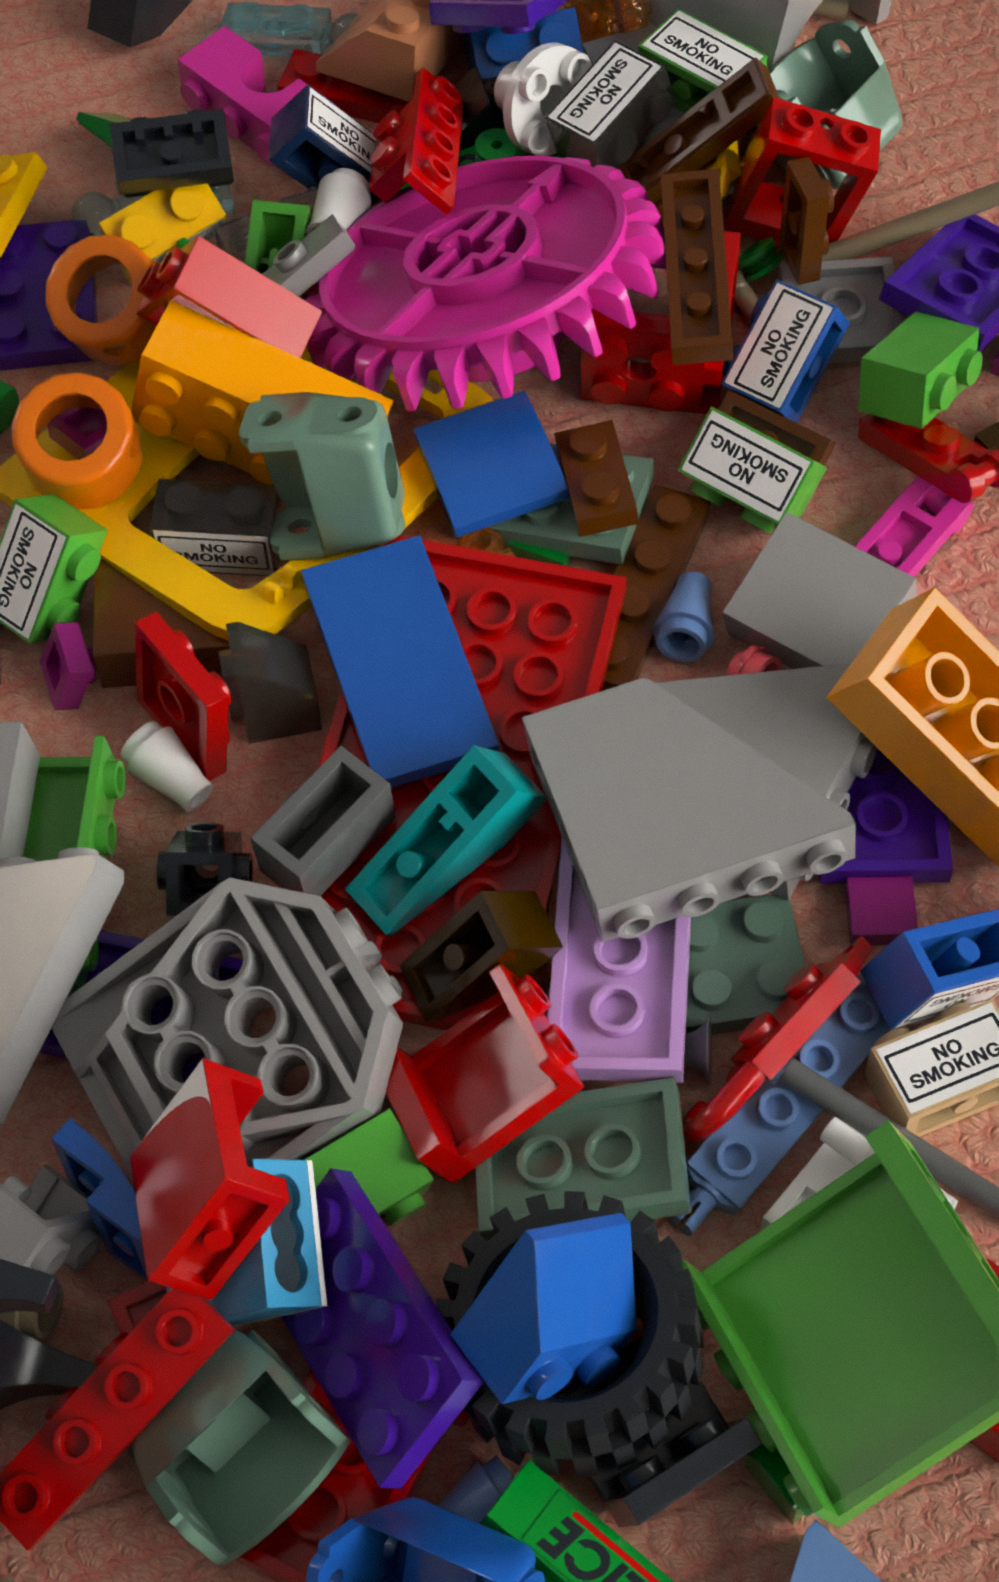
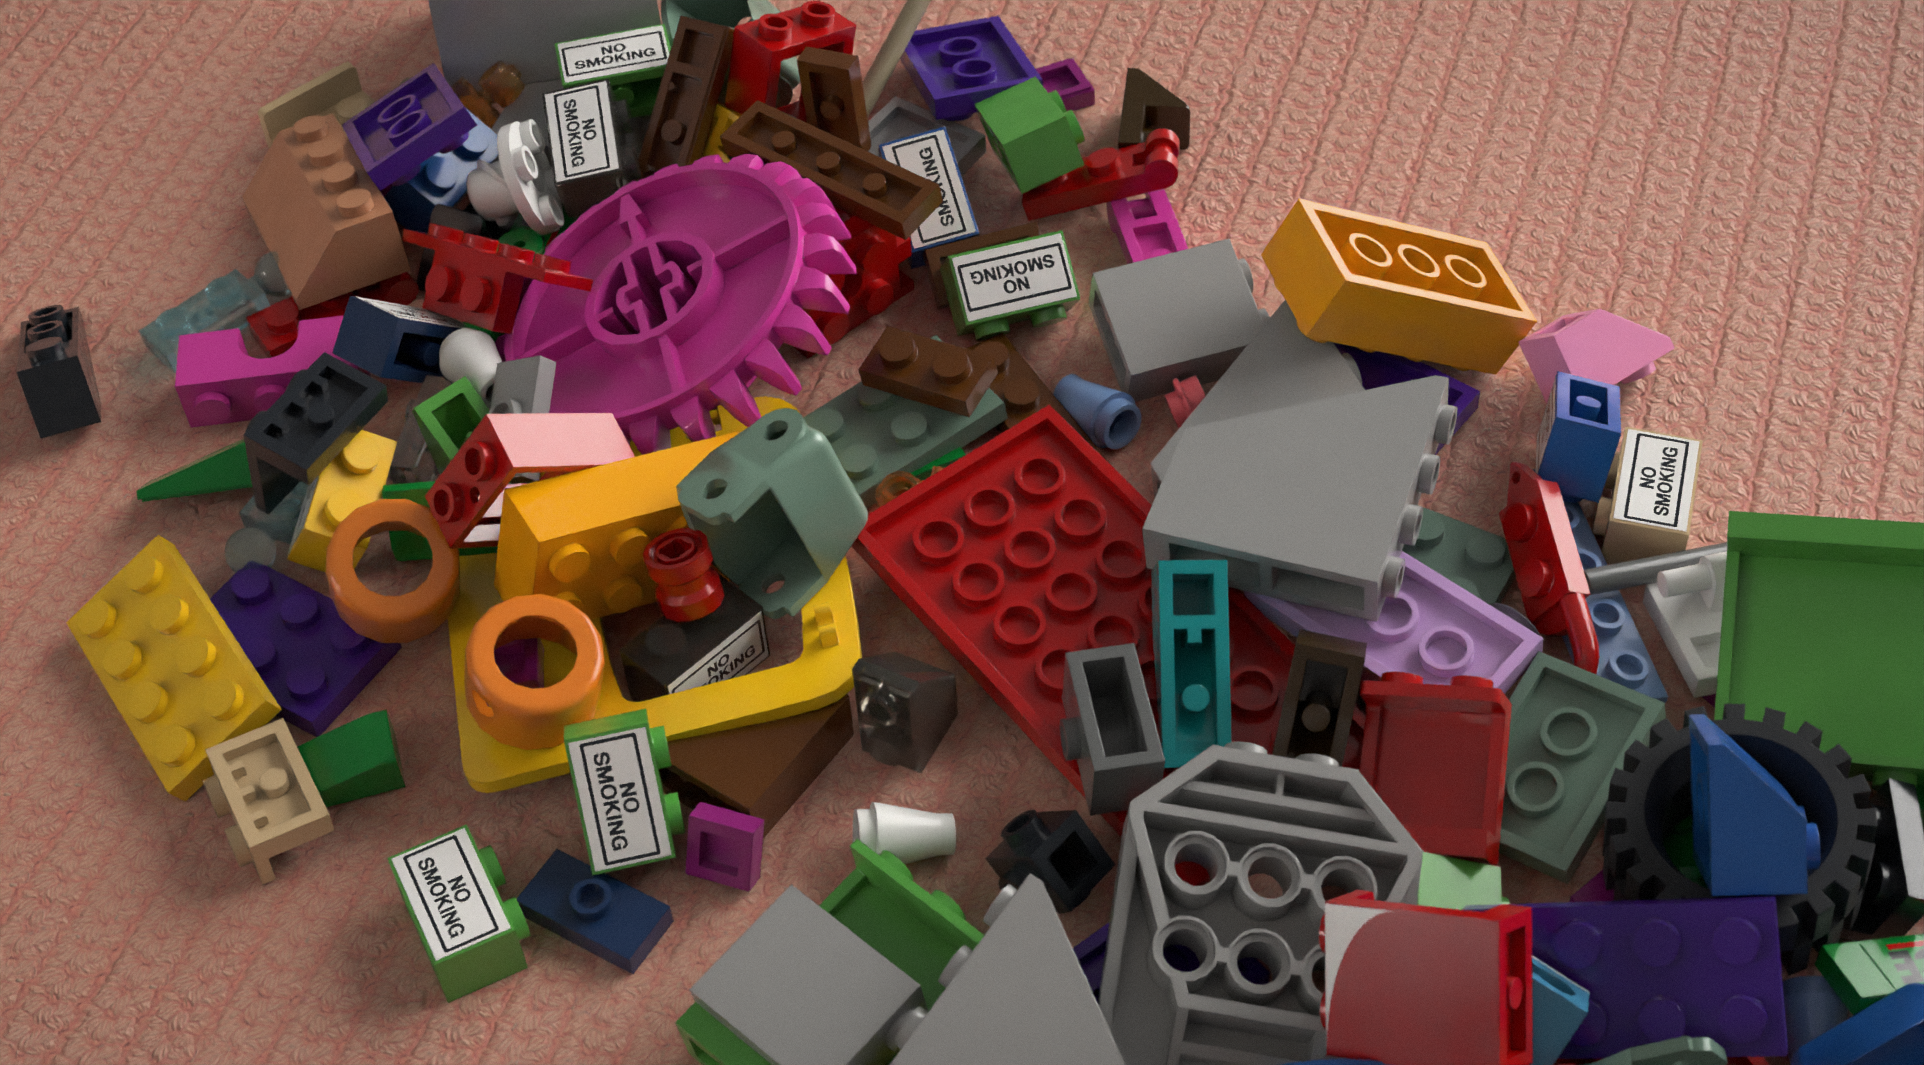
camera: 50 degrees left, 10 degrees down
(182, 693) = (856, 759): red plate -> none
(230, 472) = (682, 569): none -> red wheel
(398, 661) = (982, 589): blue tile -> none
(491, 463) = (861, 416): blue slope -> none
(880, 908) = (1472, 460): magenta tile -> none

